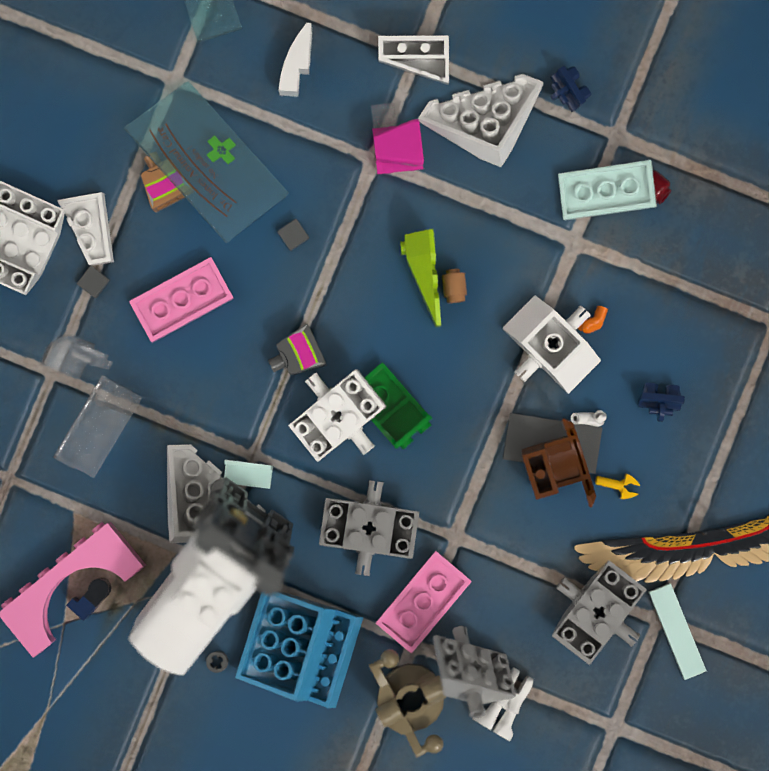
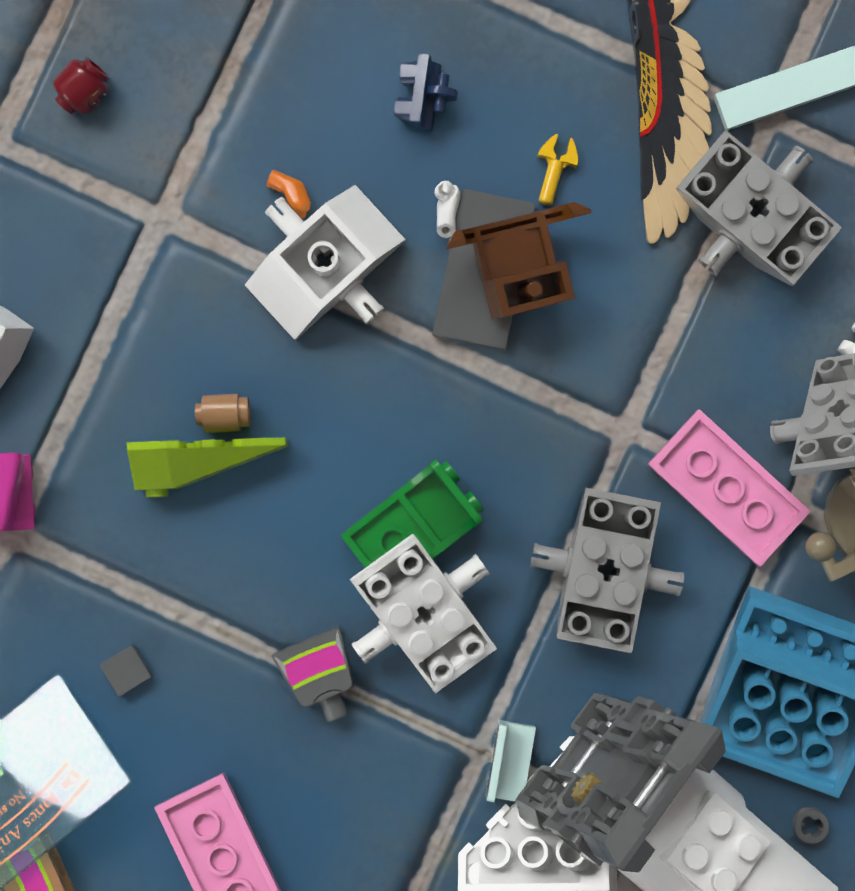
camera: 85 degrees left, 0 degrees up
(607, 190) = (80, 158): light aqua tile -> none

